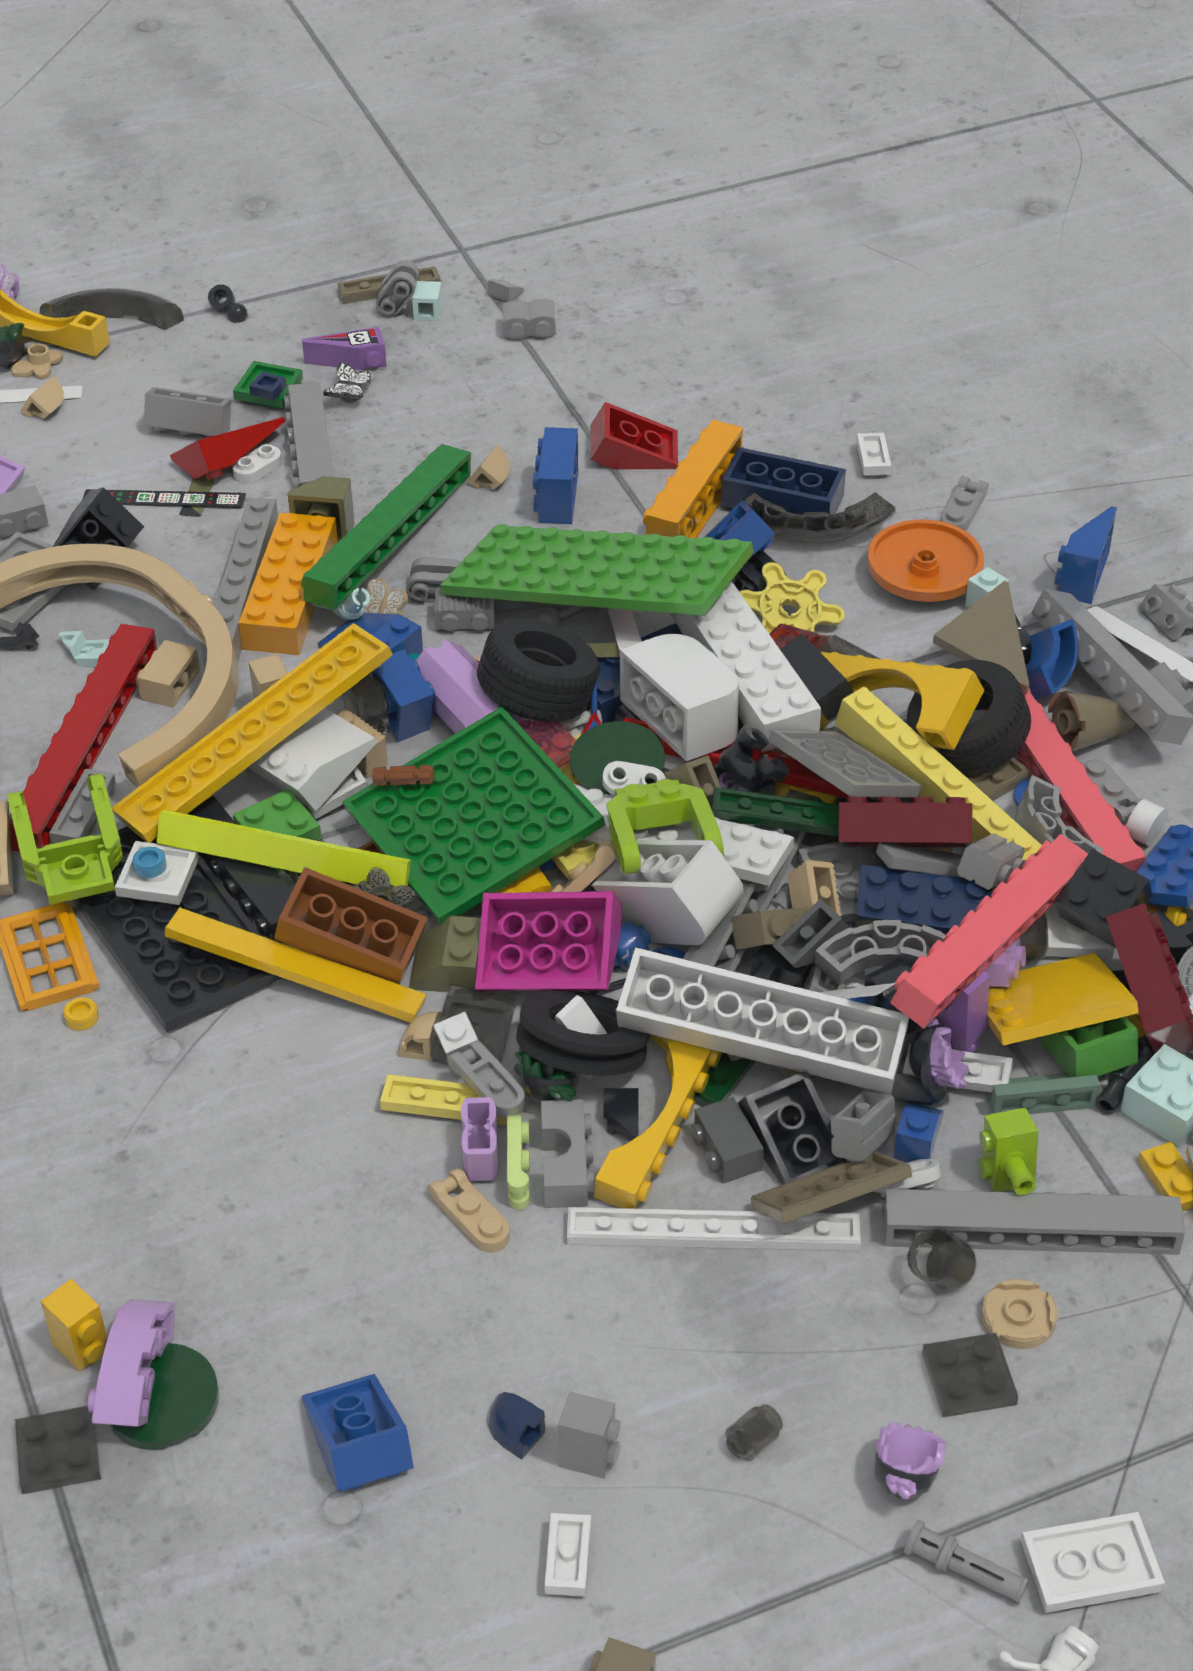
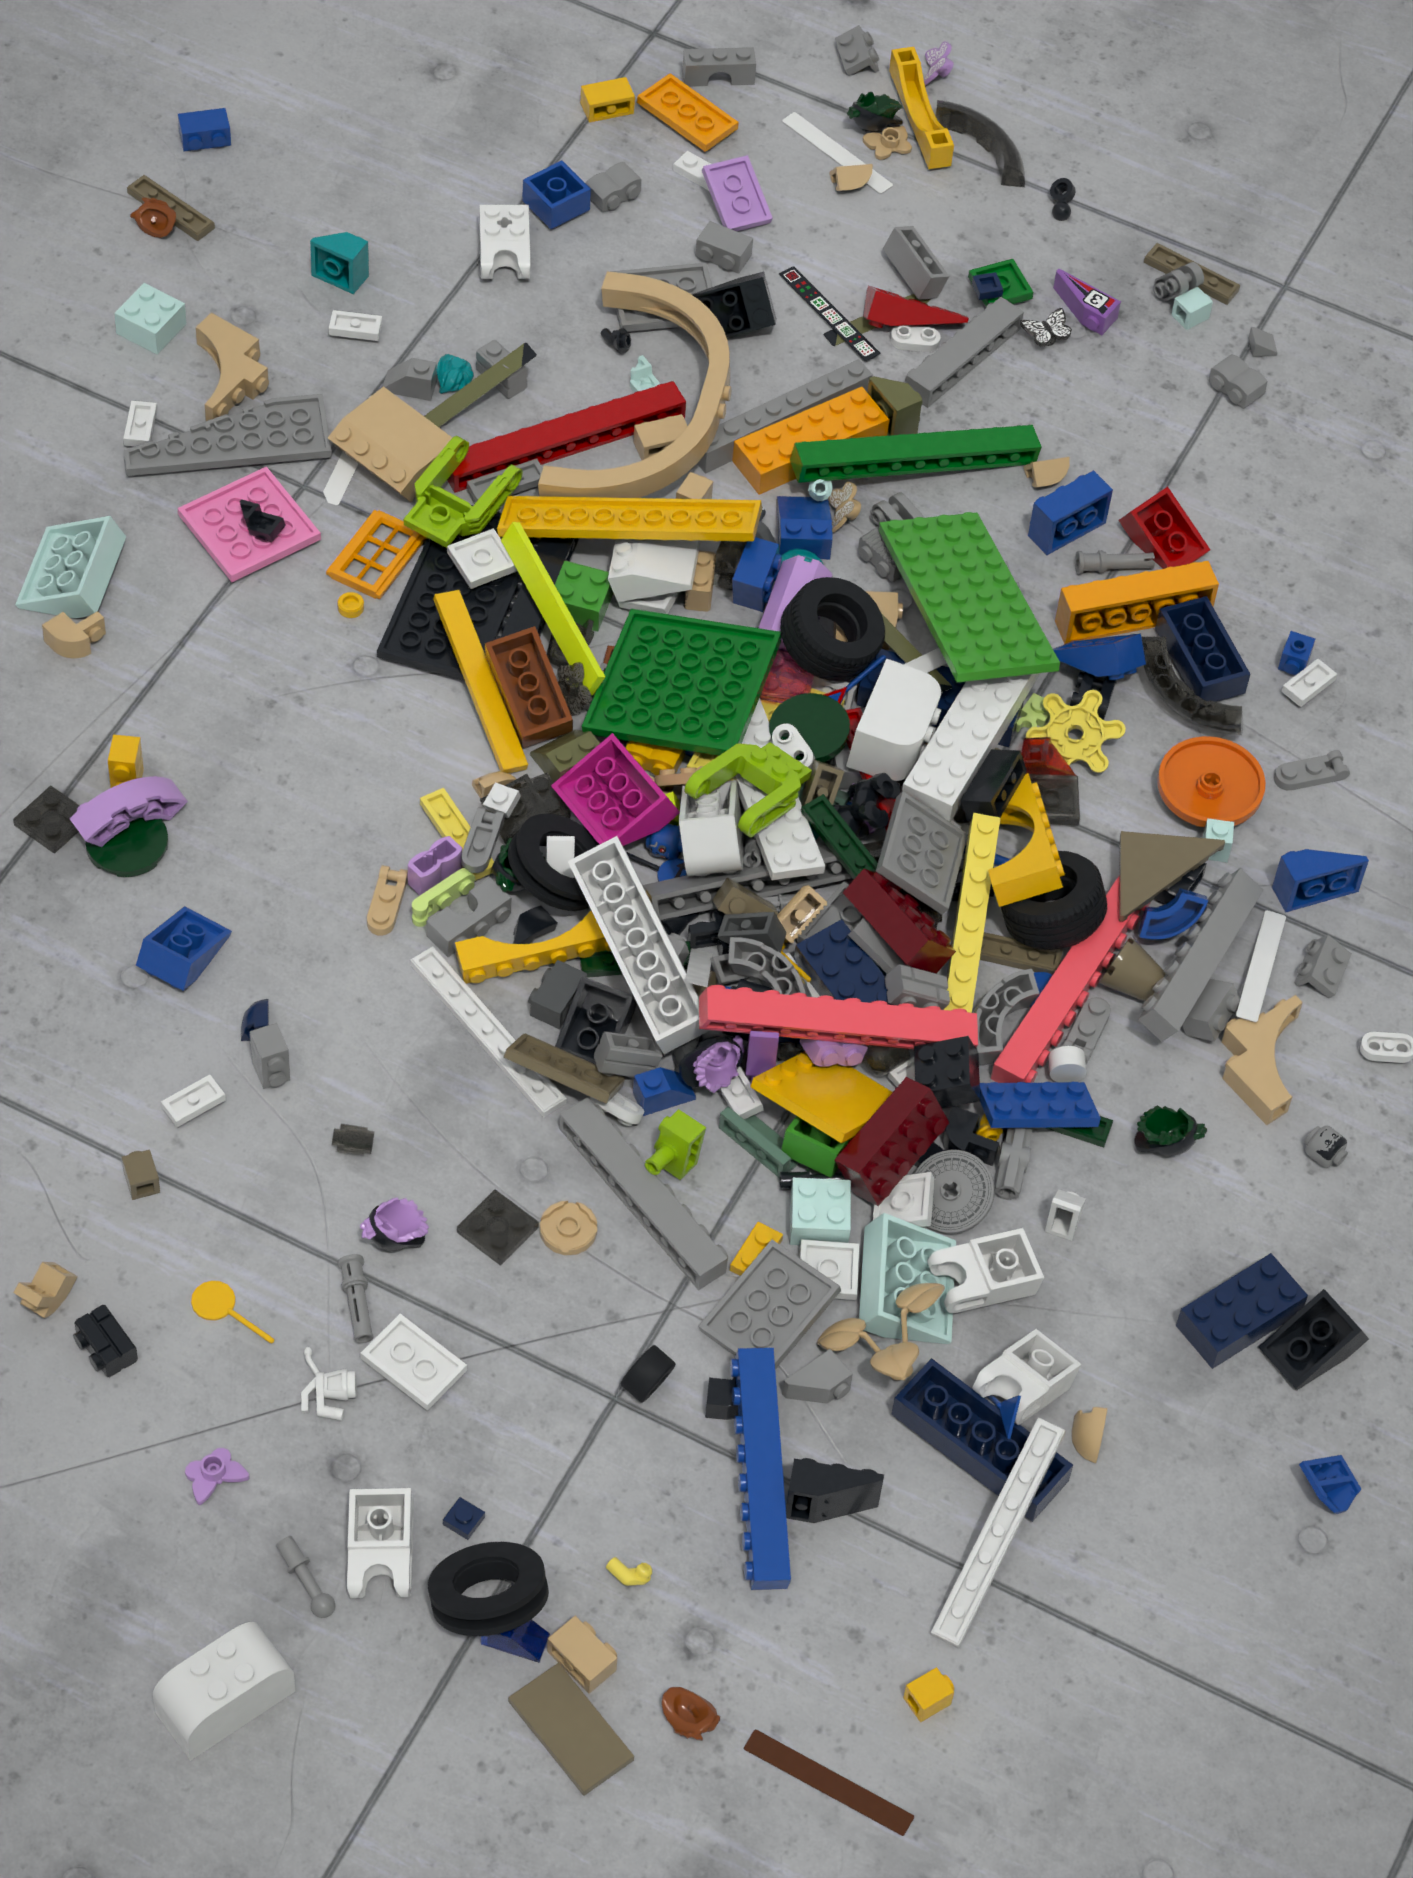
camera: 45 degrees right, 10 degrees up
(149, 862) = (480, 548): dark azure tile -> none
(403, 775) = (674, 623): dark orange axle -> none
(622, 492) = (1102, 561): none -> light grey pin
(838, 443) = (1295, 658): none -> blue brick
(949, 1263) = (565, 1169): clear smoke helmet -> none

